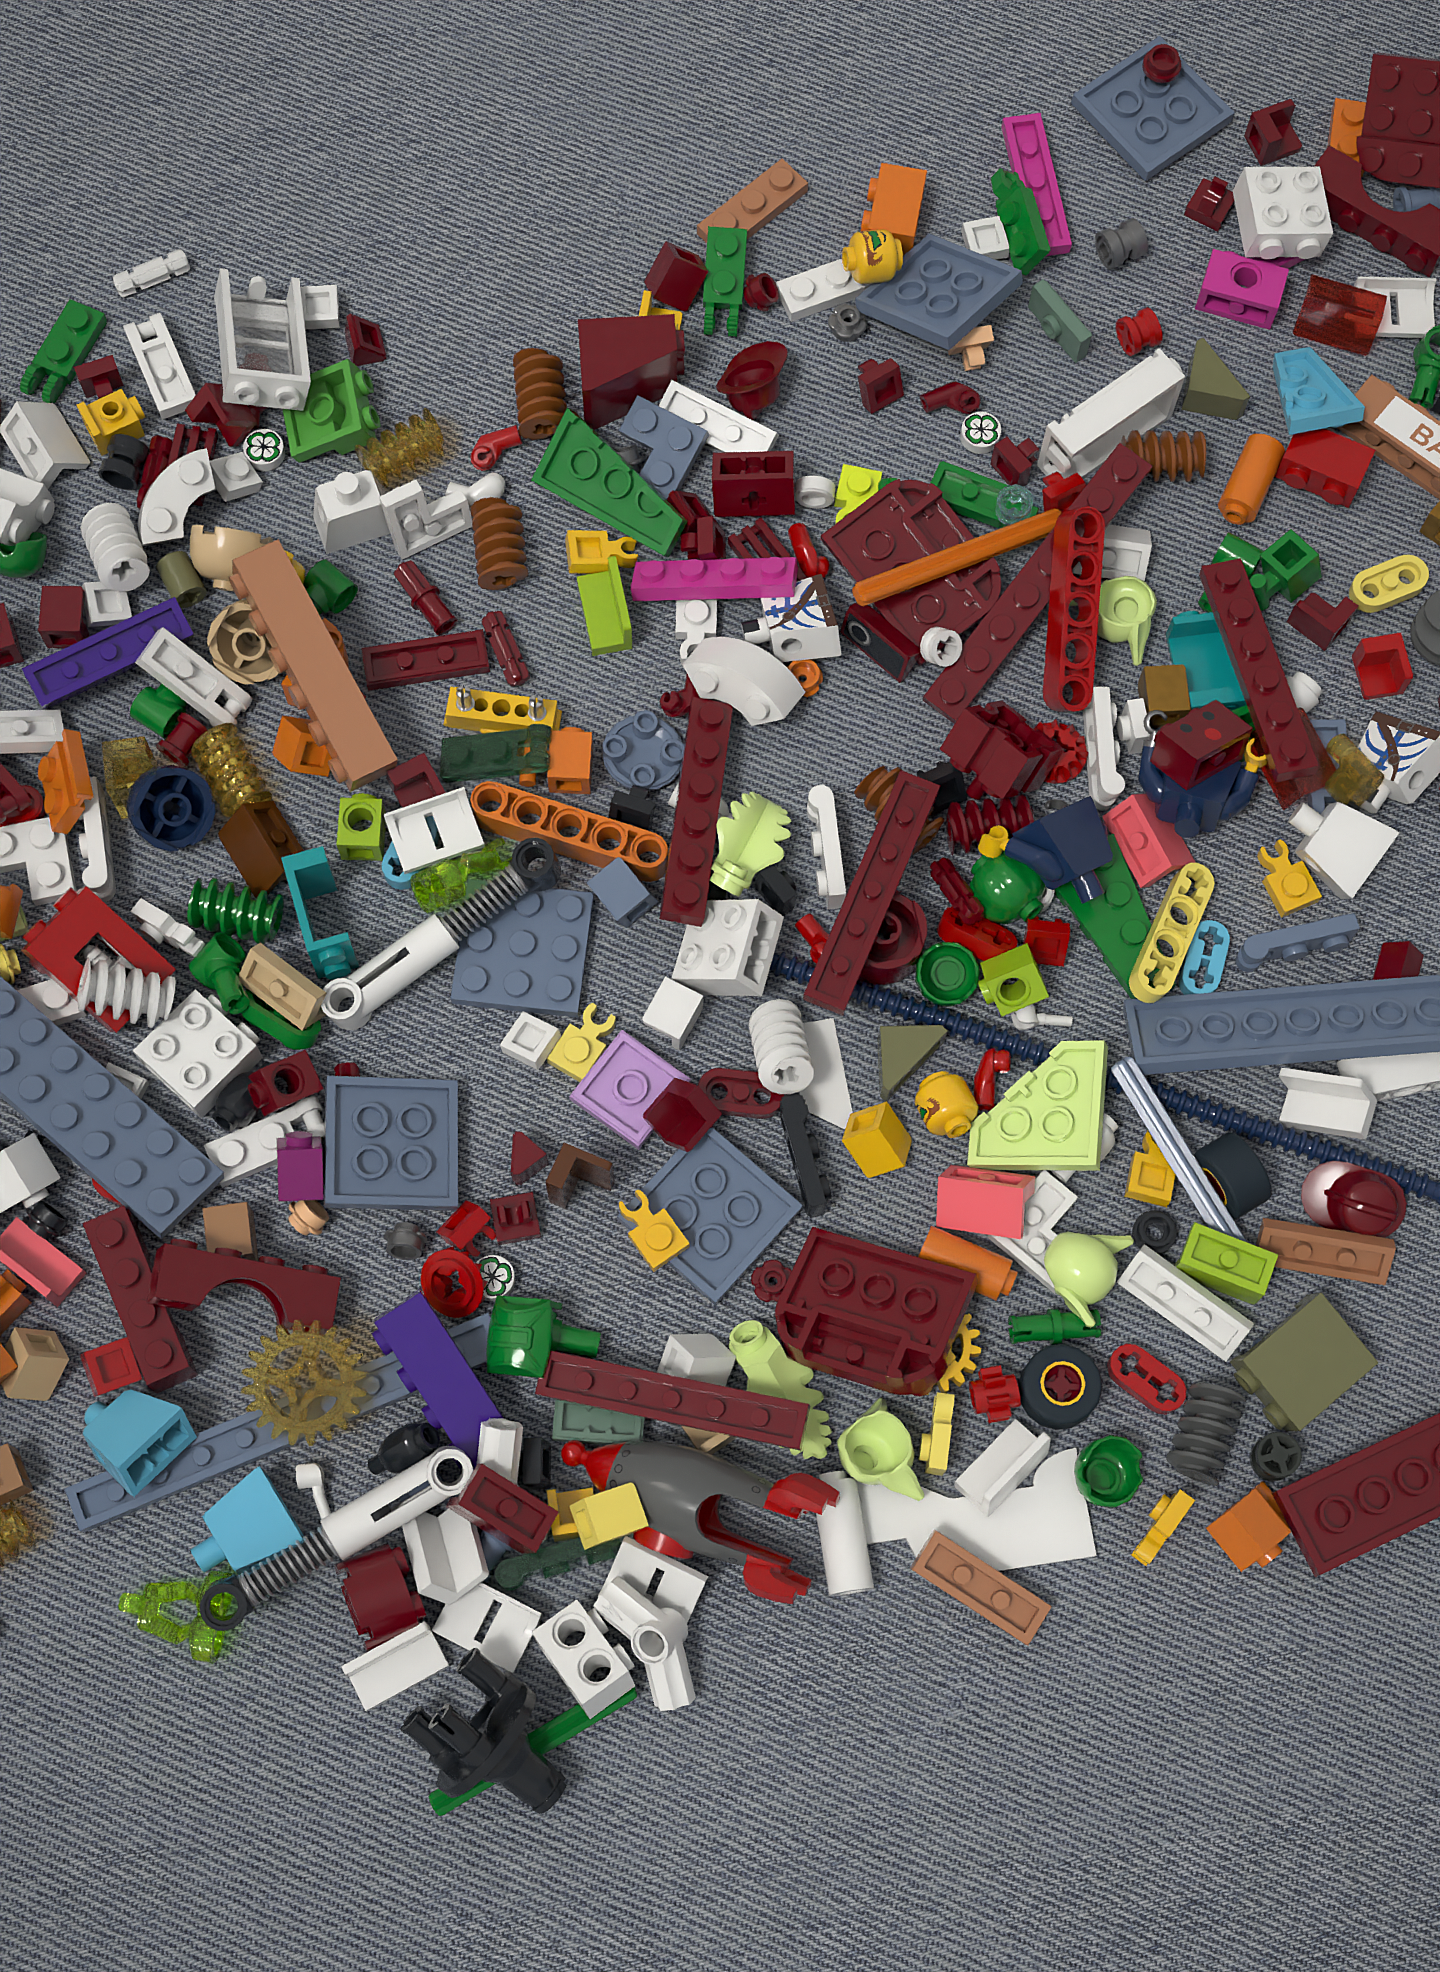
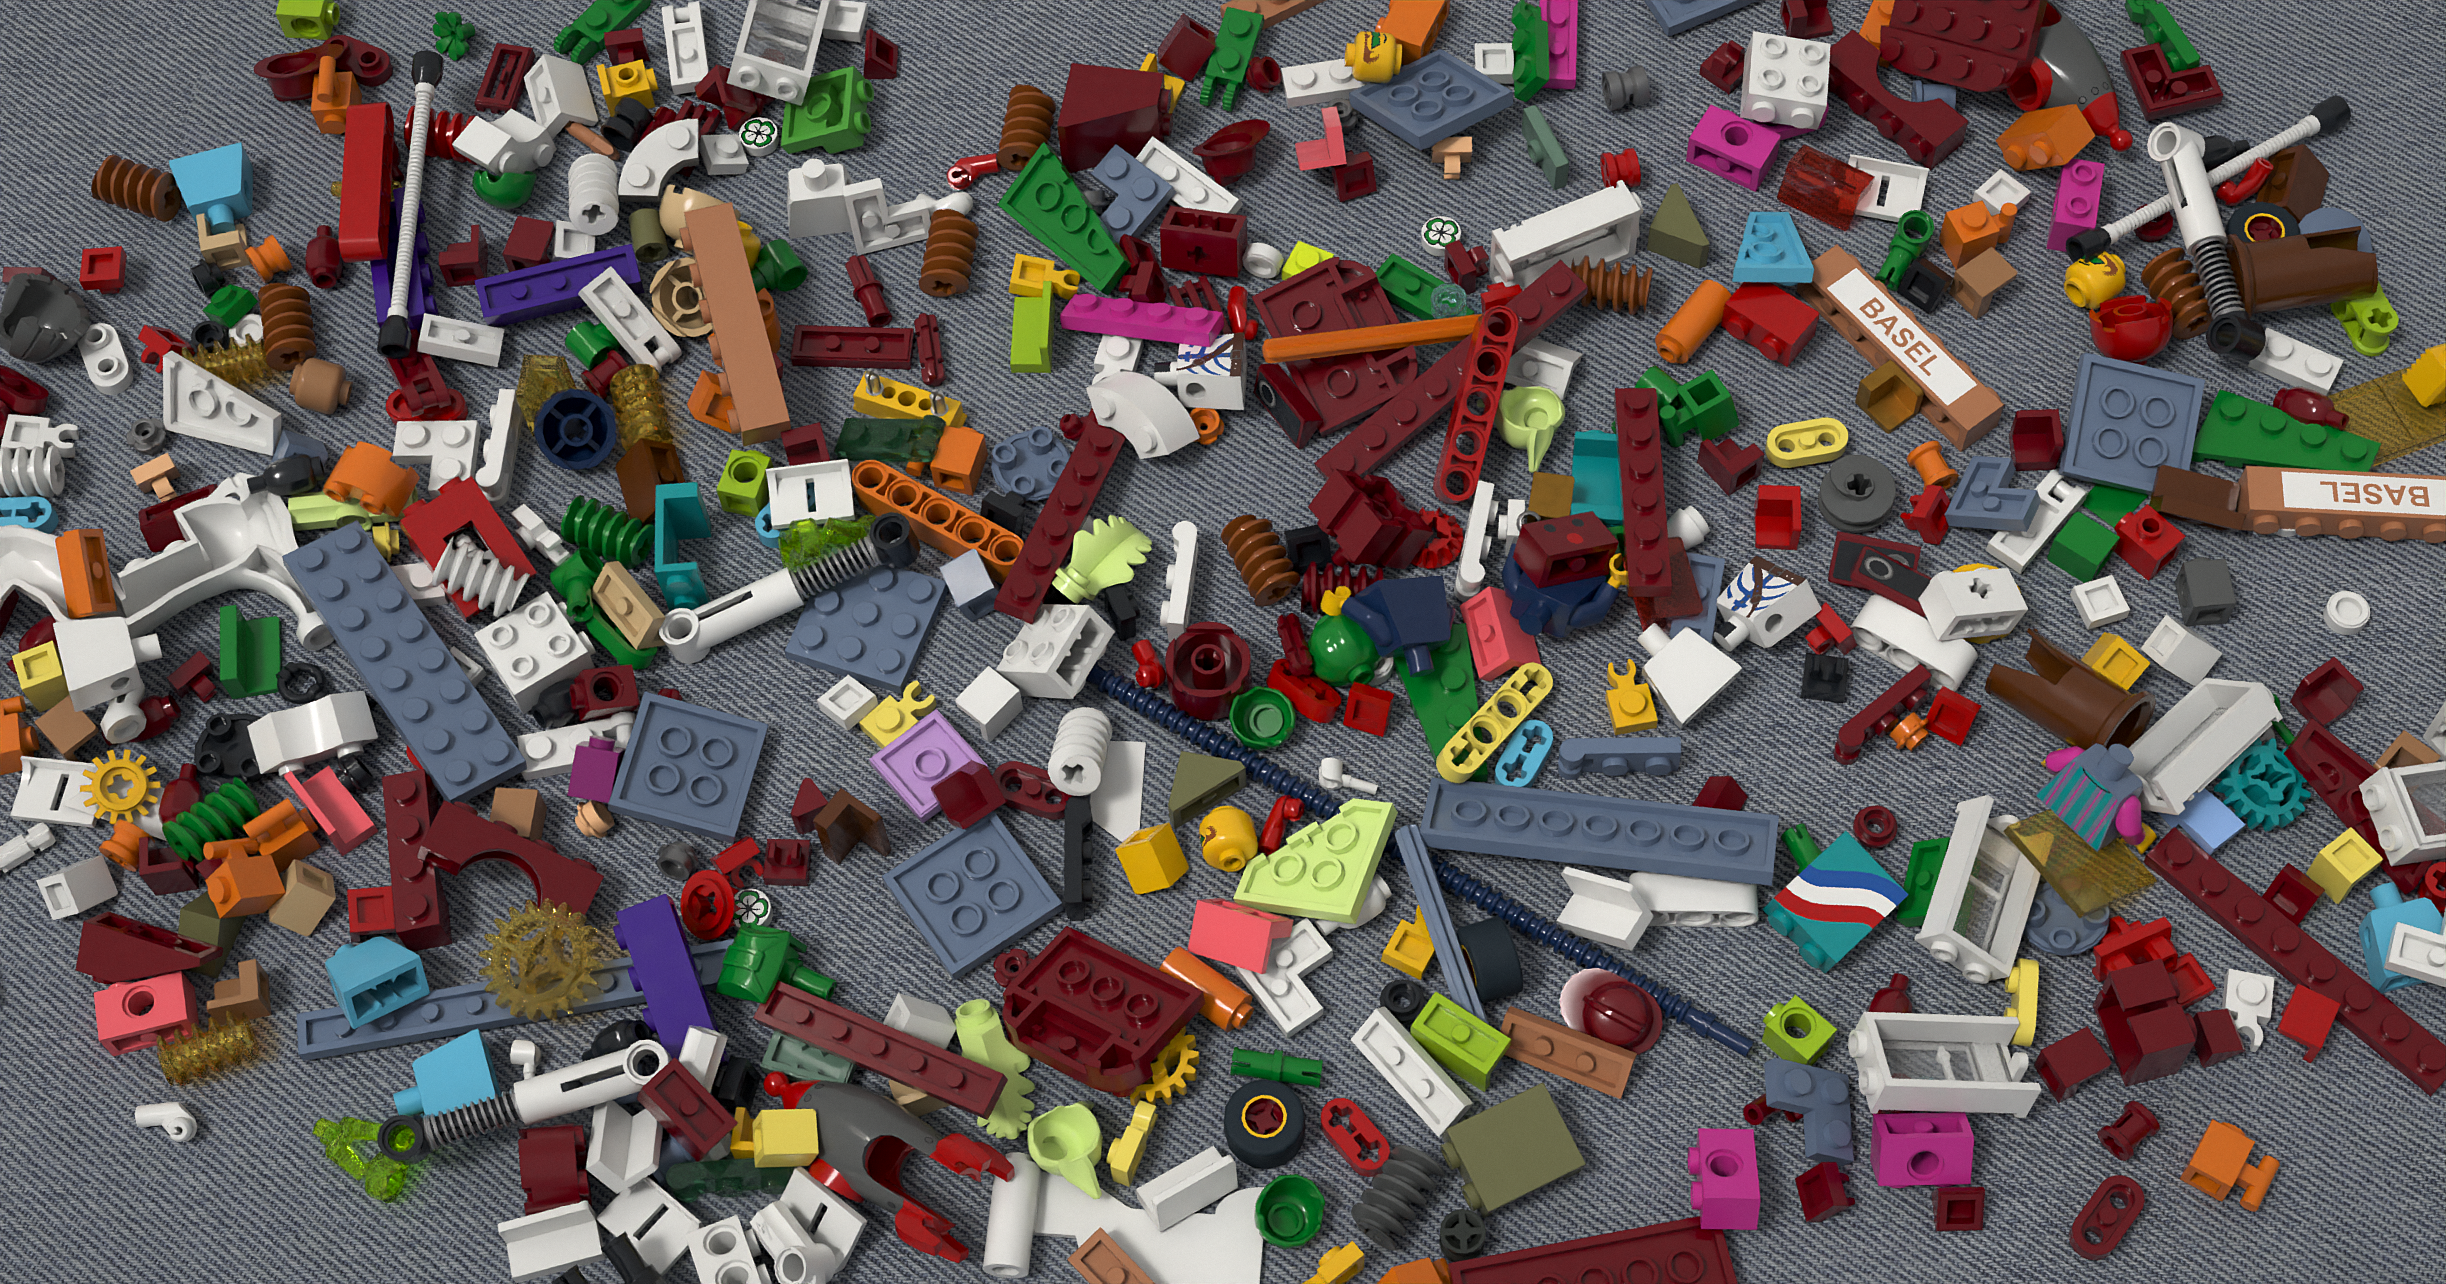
camera: 20 degrees right, 10 degrees down
(65, 781) = (486, 389): orange plate -> none
(96, 487) = (596, 142): none -> nougat piece
(402, 447) = (884, 155): clear yellow piece -> none
(656, 1235) = (910, 898): yellow plate -> none
(851, 362) = (1323, 151): none -> coral panel
(871, 893) = (1200, 622): dark red plate -> none
(952, 395) = (1422, 198): dark red arm -> none
(952, 648) = (1353, 415): white bush -> none
(994, 1394) = (1197, 1116): red gear -> none
(1012, 964) = (1335, 721): lime brick -> none
(1084, 1269) = (1318, 1016): yellowish green piece -> none
(1356, 775) = (1714, 608): clear yellow piece -> none

